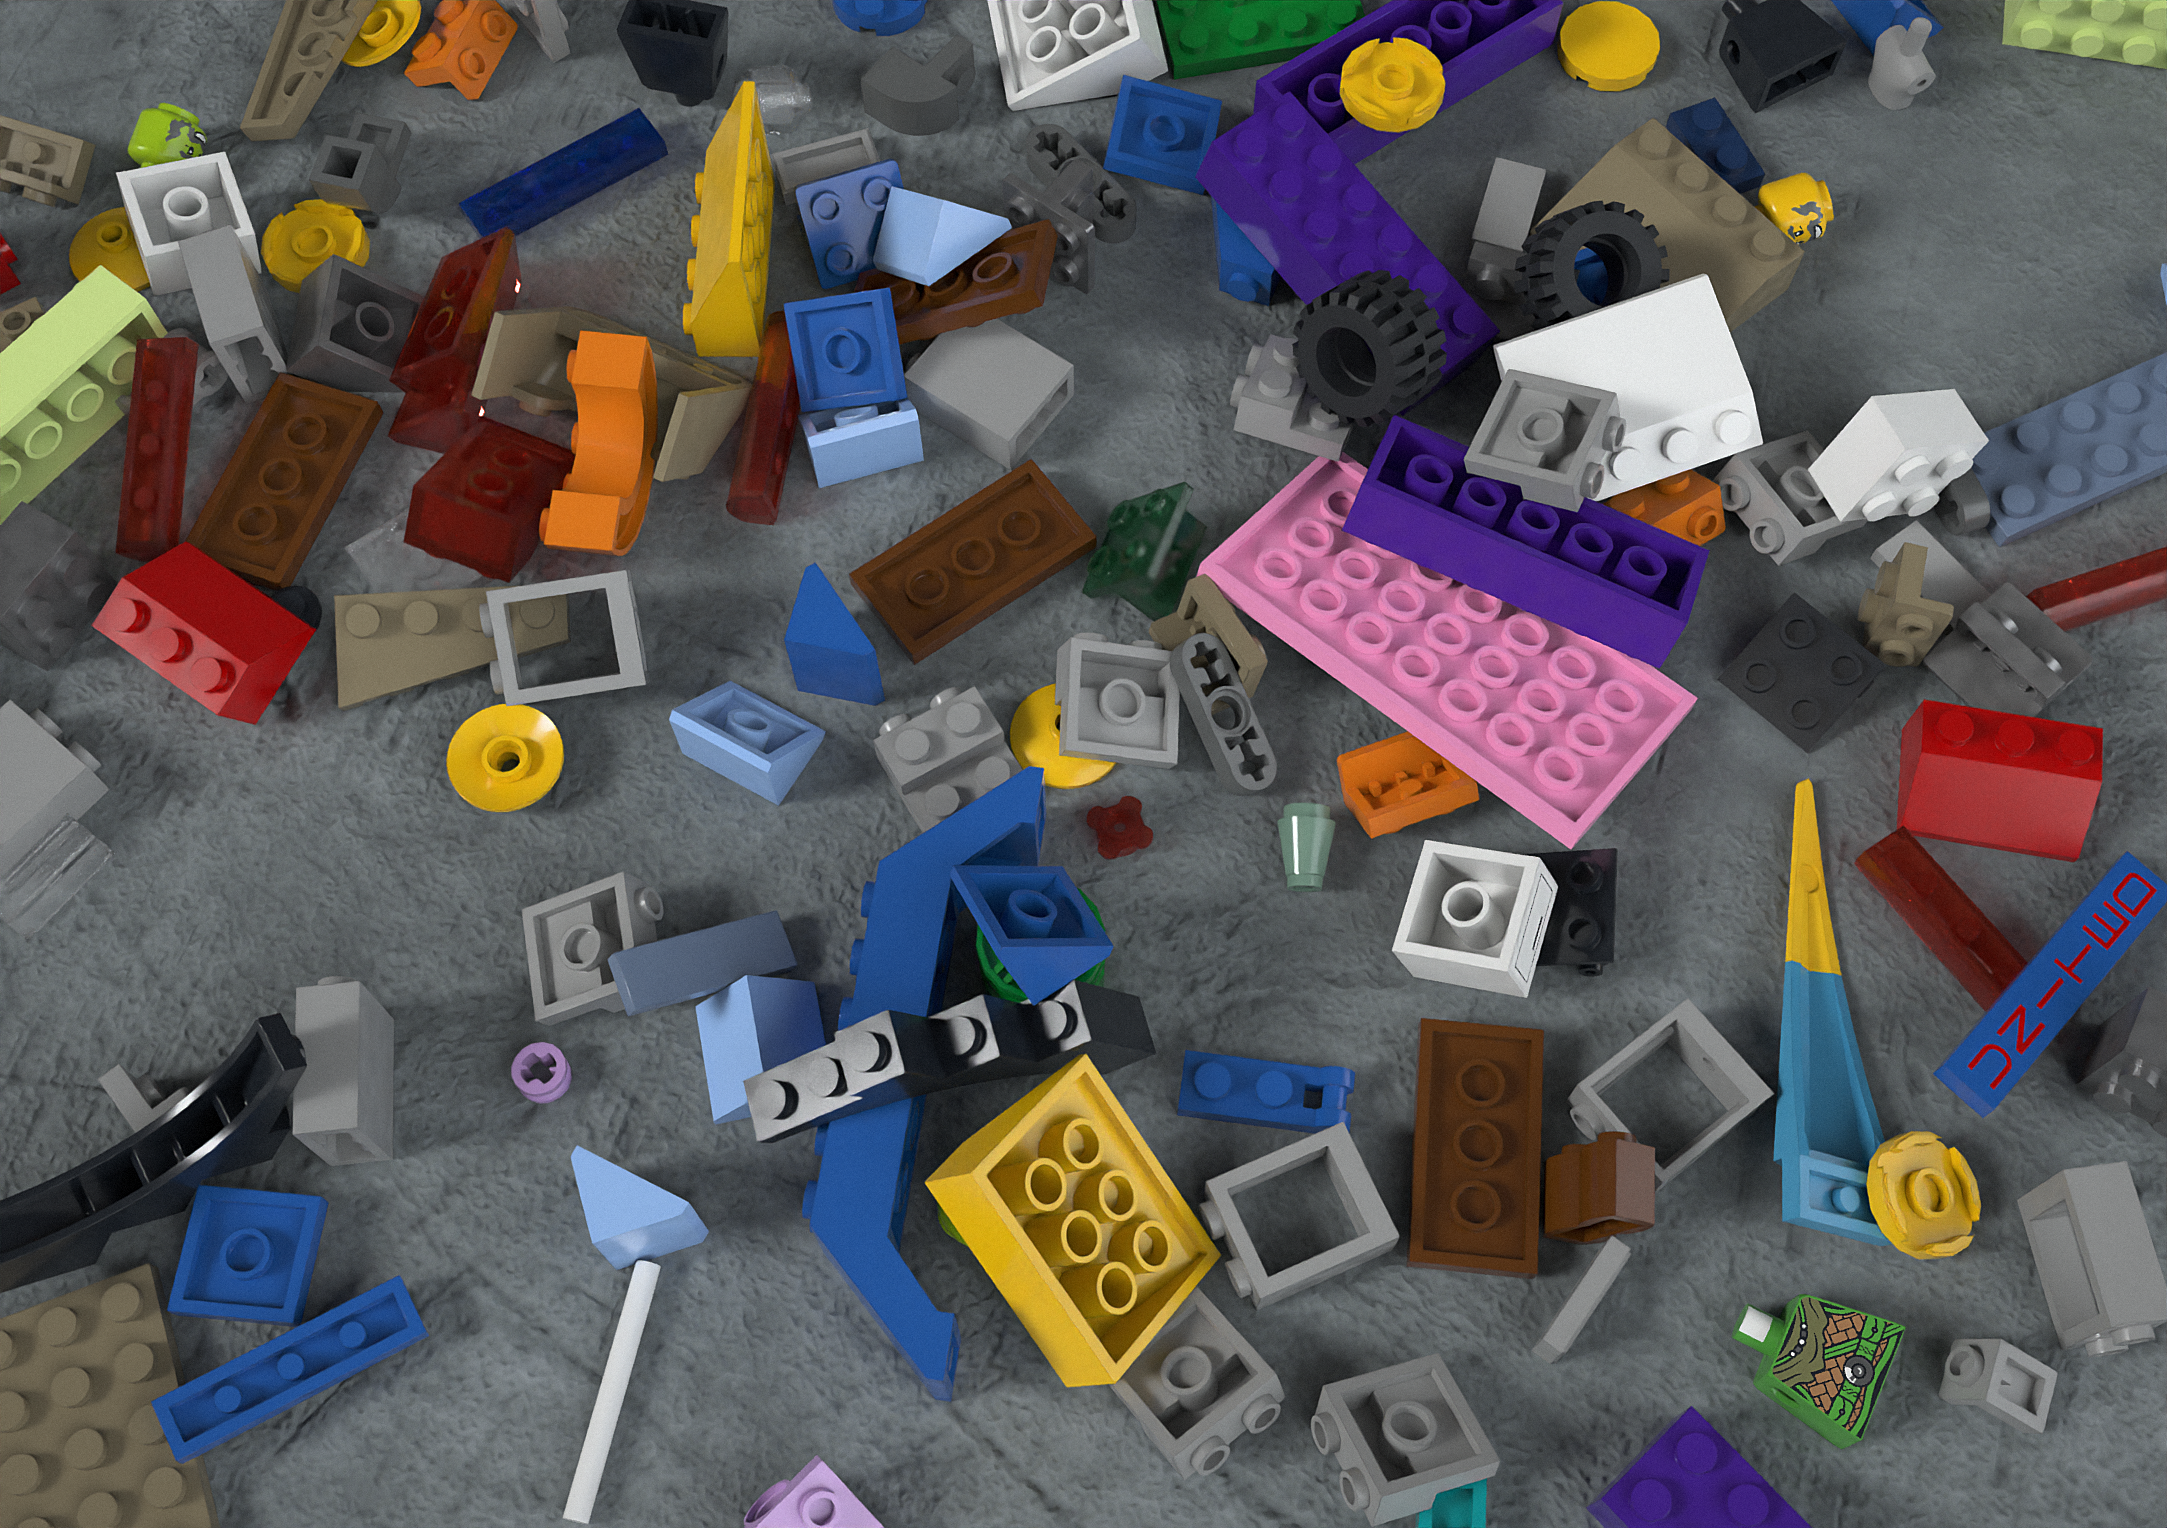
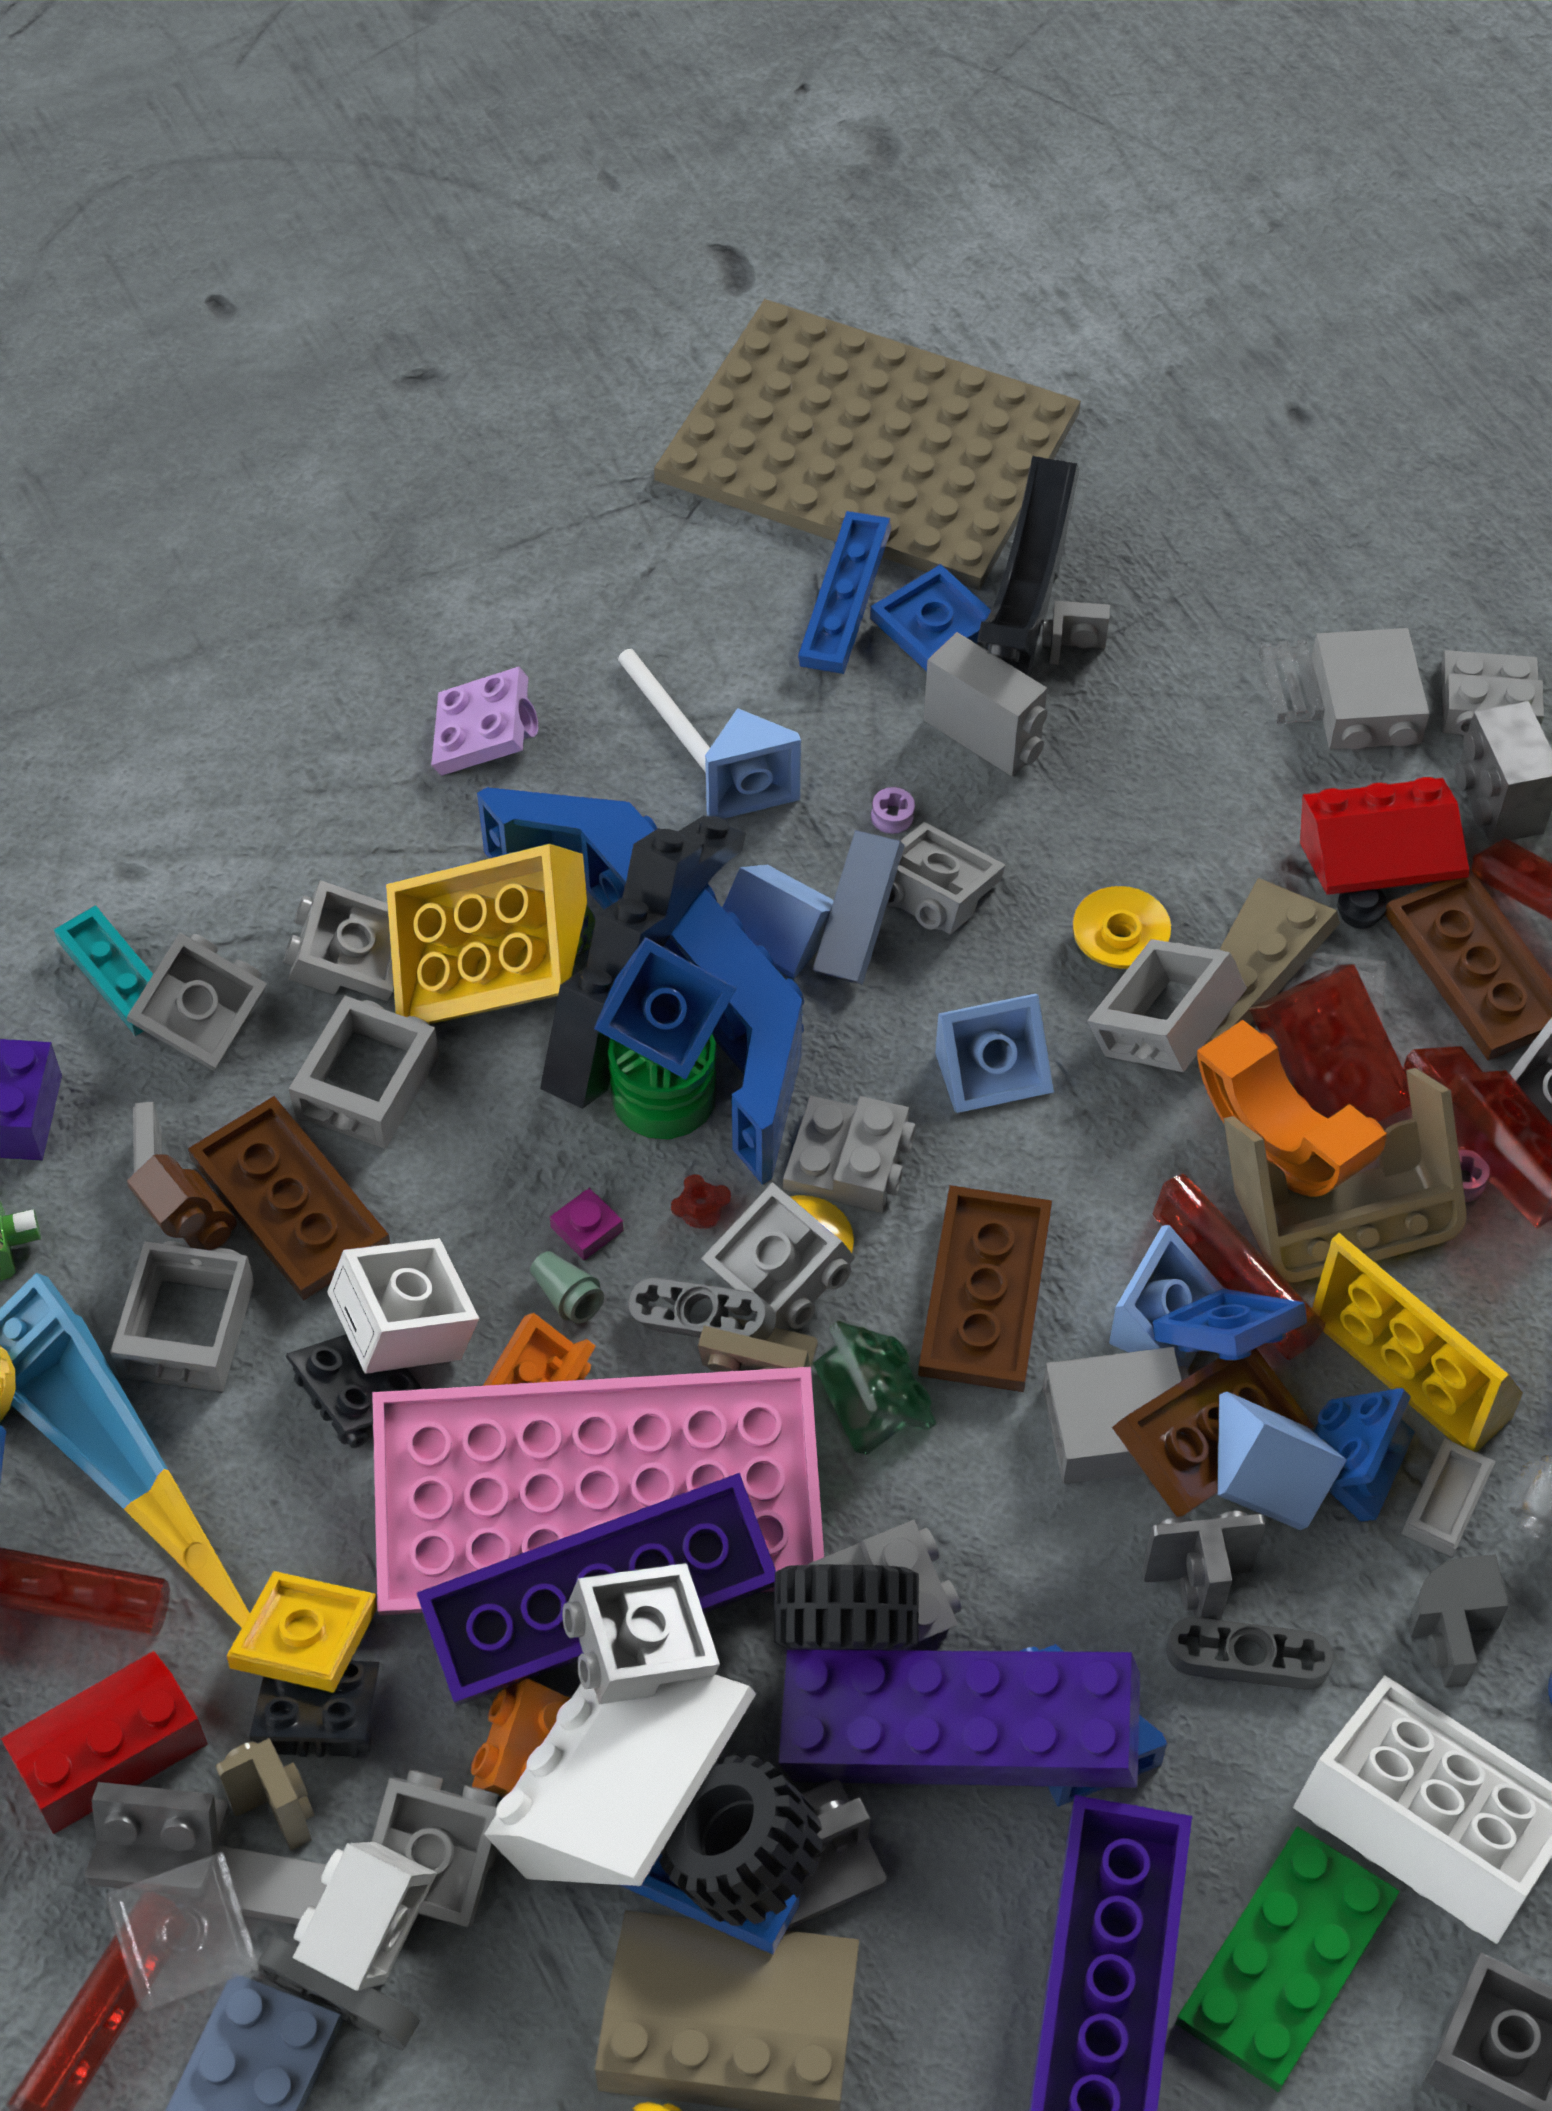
camera: 135 degrees right, 10 degrees down
(828, 647) = (1001, 1133): blue slope -> none
(1161, 133) = (1231, 1742): blue plate -> none
(1231, 897) = (586, 1223): none -> magenta plate
(1263, 1092) = (452, 1129): blue plate -> none
(1392, 85) = (1077, 1905): yellow tile -> none
(1508, 204) = (896, 1944): light grey tile -> none
(1771, 730) = (302, 1631): none -> yellow tile
(2044, 560) = (181, 1931): none -> clear tile

